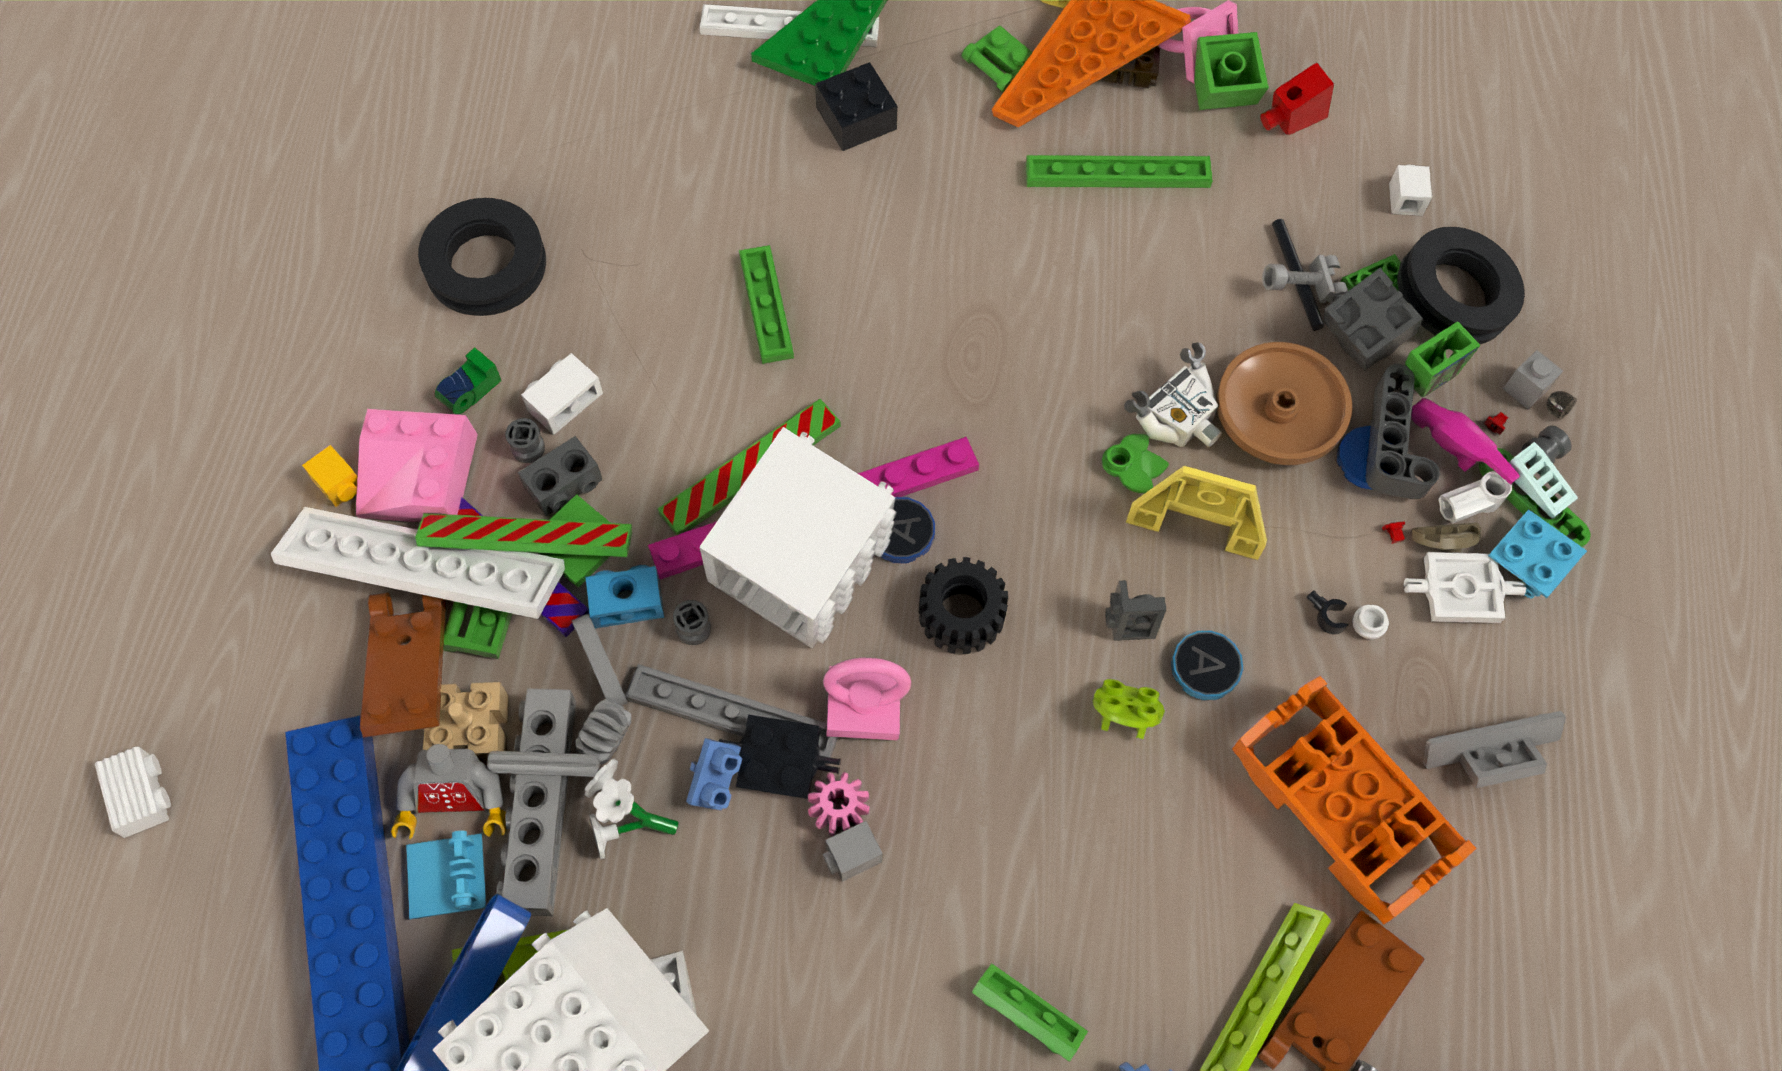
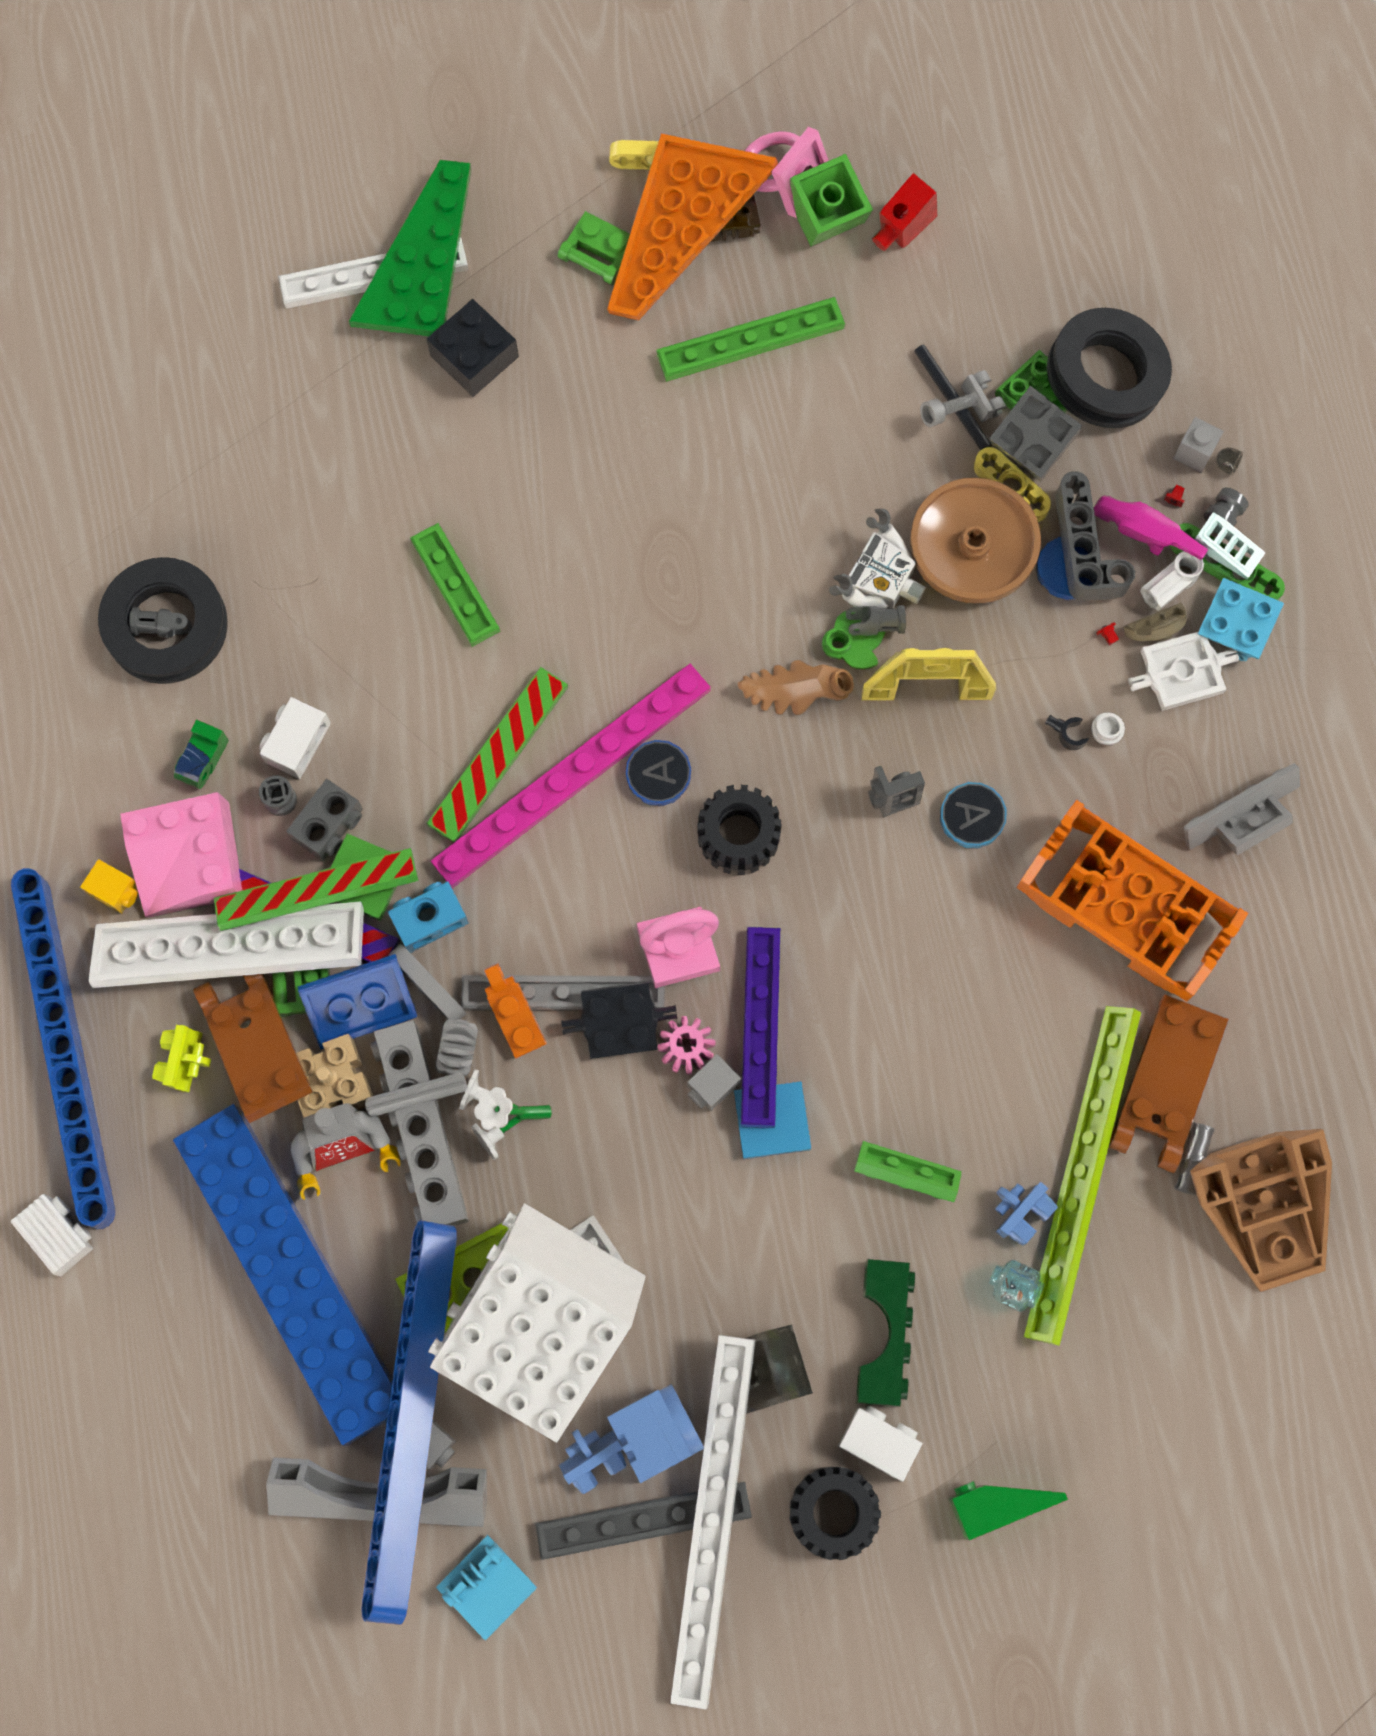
camera: 15 degrees left, 10 degrees up
(225, 627) = (73, 1059): none -> blue beam
(332, 659) = (183, 1059): none -> neon yellow hips
(446, 875) = (362, 1217): medium azure hinge -> none
(480, 257) = (162, 623): none -> dark grey piece
(525, 654) = (358, 1000): none -> blue tile
(674, 715) = (513, 1012): none -> orange hinge
(692, 630) = (498, 929): dark grey wheel -> none
(713, 774) = (568, 1055): medium blue hips -> none
(799, 537) = (579, 820): white piece -> none
(902, 911) = (790, 1129): none -> dark azure tile
(920, 812) = (760, 1028): none -> dark purple tile
(1065, 489) = (796, 687): none -> medium nougat plant
(1128, 706) = (914, 877): lime plate -> none
(1160, 447) = (877, 620): none -> dark grey piece
(1334, 351) = (1035, 493): none -> light yellow beam
(1410, 190) = (1037, 276): white brick -> none
(1430, 362) = (1102, 460): bright green torso -> none

